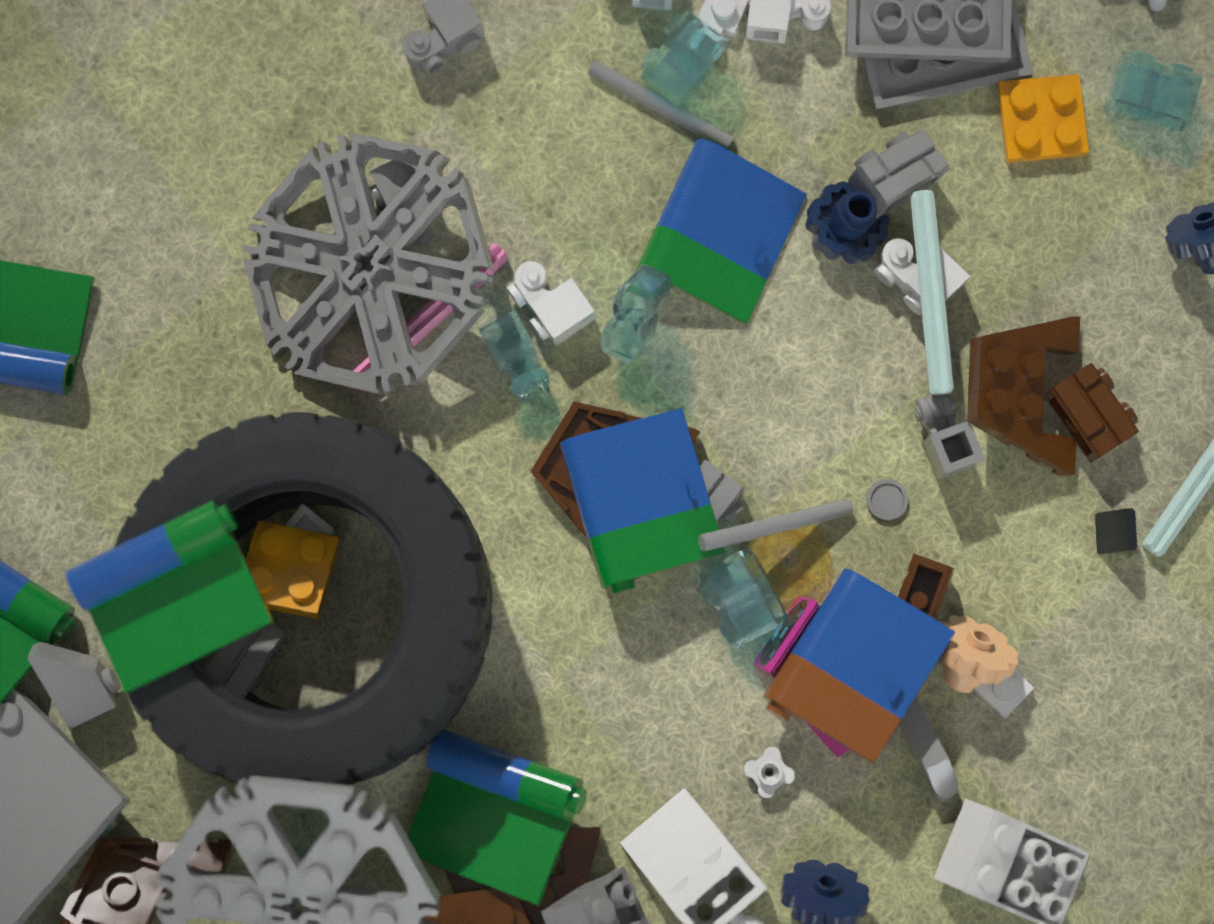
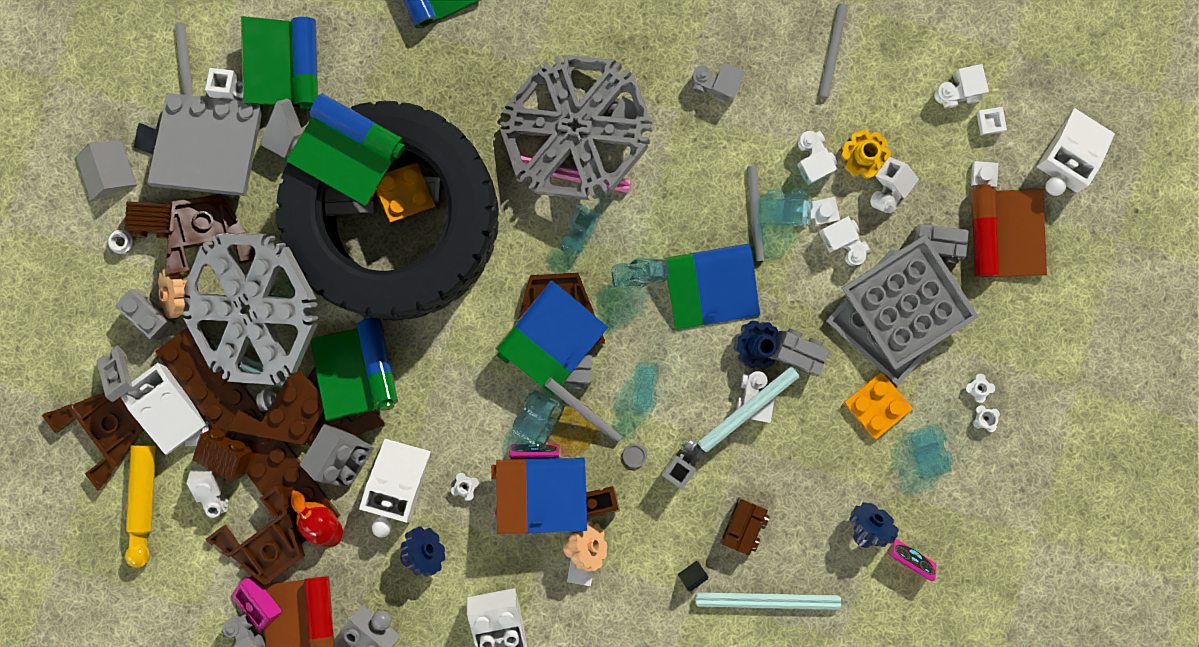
camera: 50 degrees right, 5 degrees up
(557, 311) = (616, 234): white brick -> none
(791, 410) = (645, 379): none -> clear light blue brick
(929, 753) = (525, 556): light grey piece -> none
(1009, 389) = (727, 478): reddish brown wing -> none

